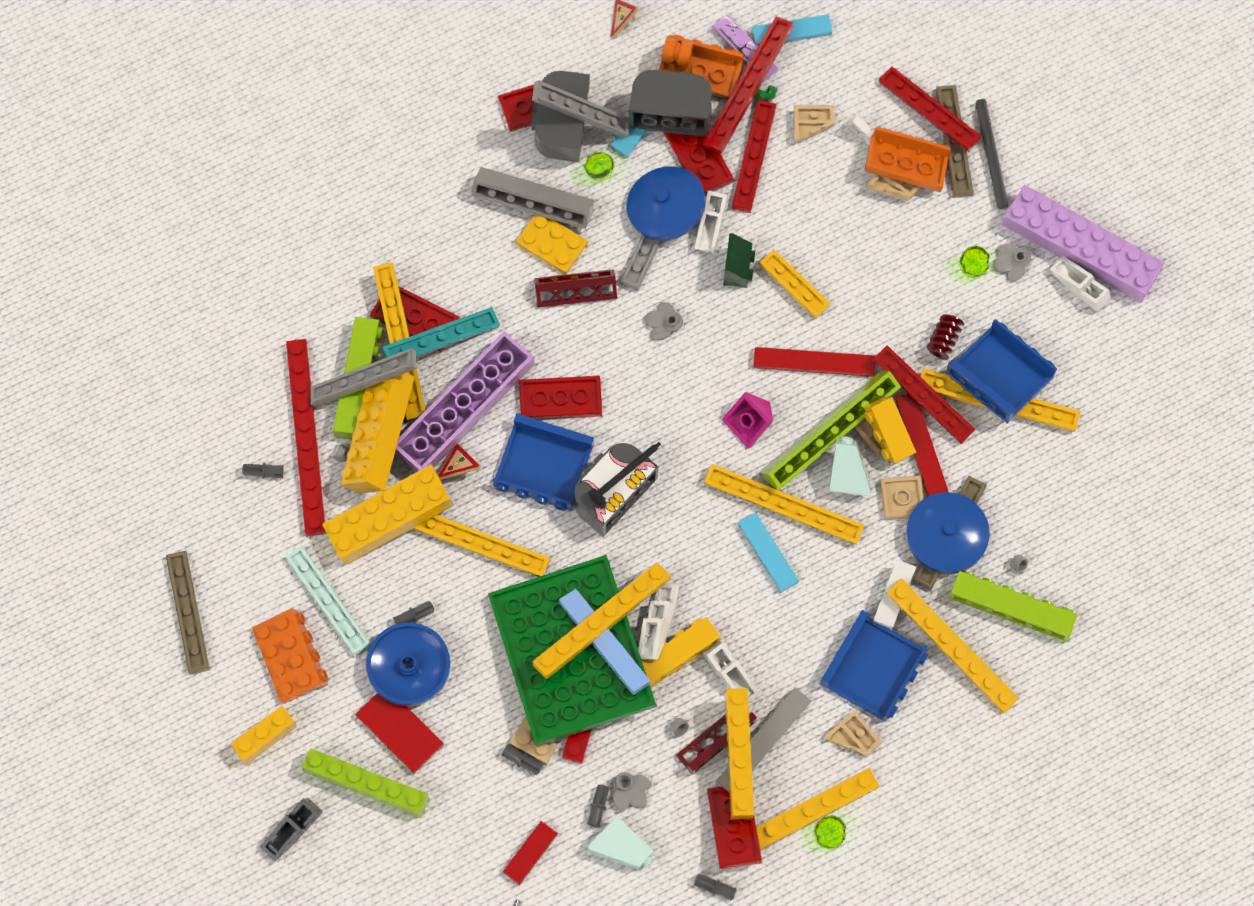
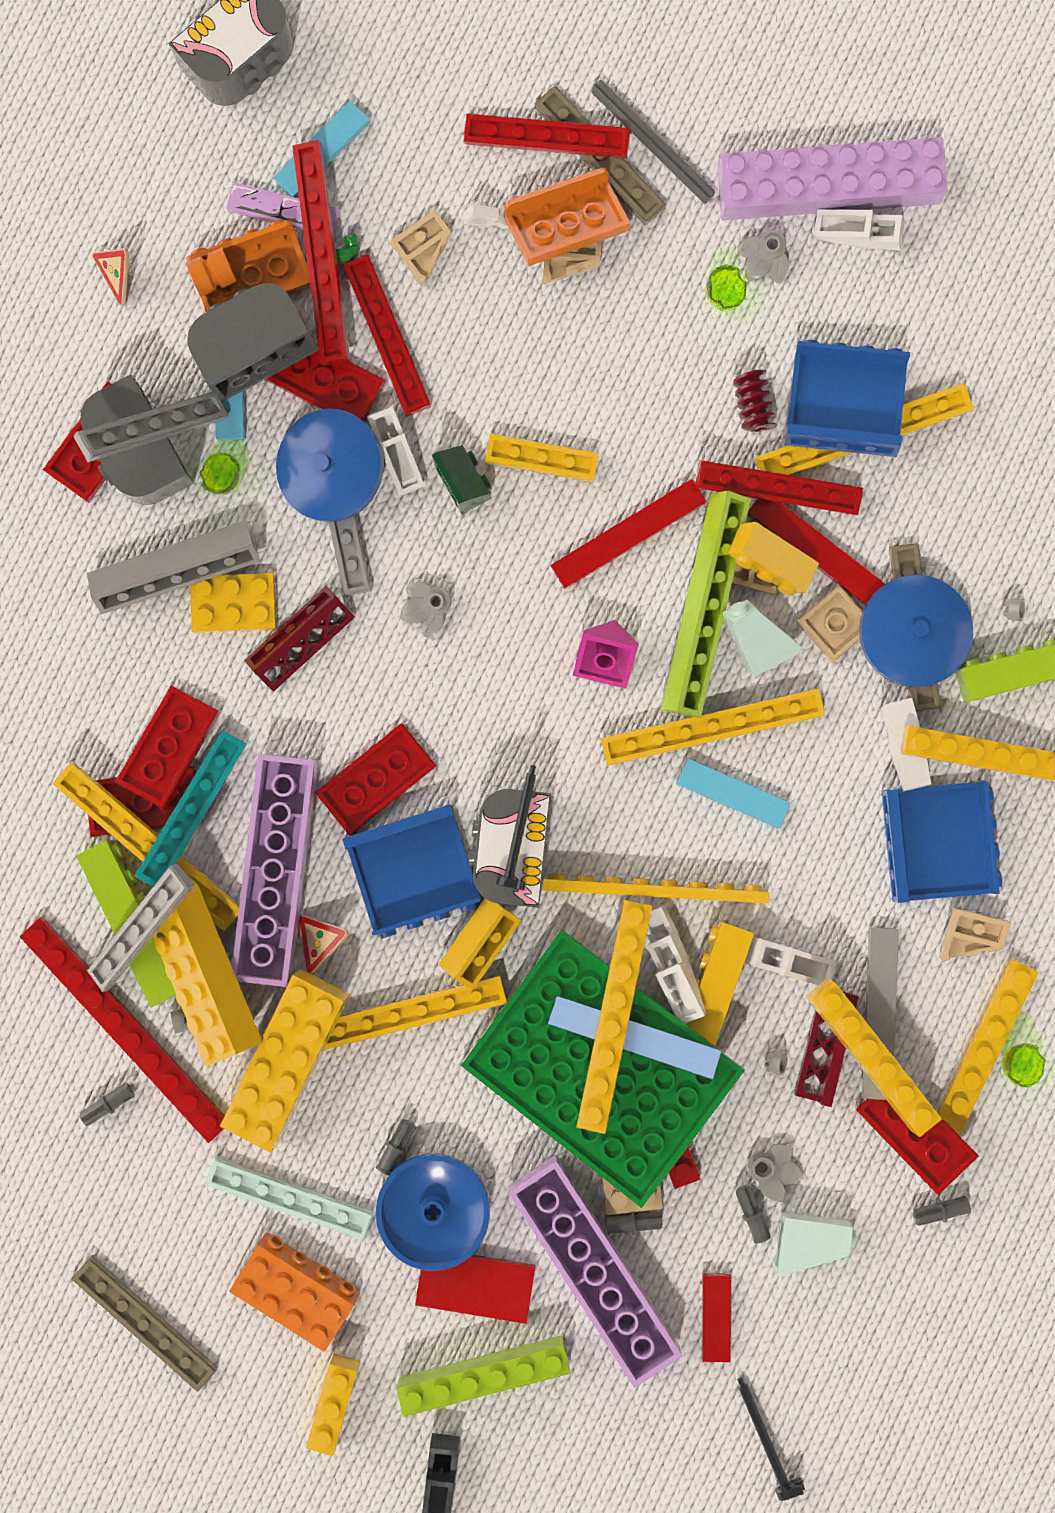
camera: 30 degrees left, 15 degrees up
(453, 295) = (167, 747): none -> red tile
(478, 767) = (595, 1271): none -> lavender brick
(552, 529) = (479, 943): none -> yellow brick
(674, 568) = (667, 889): none -> yellow plate

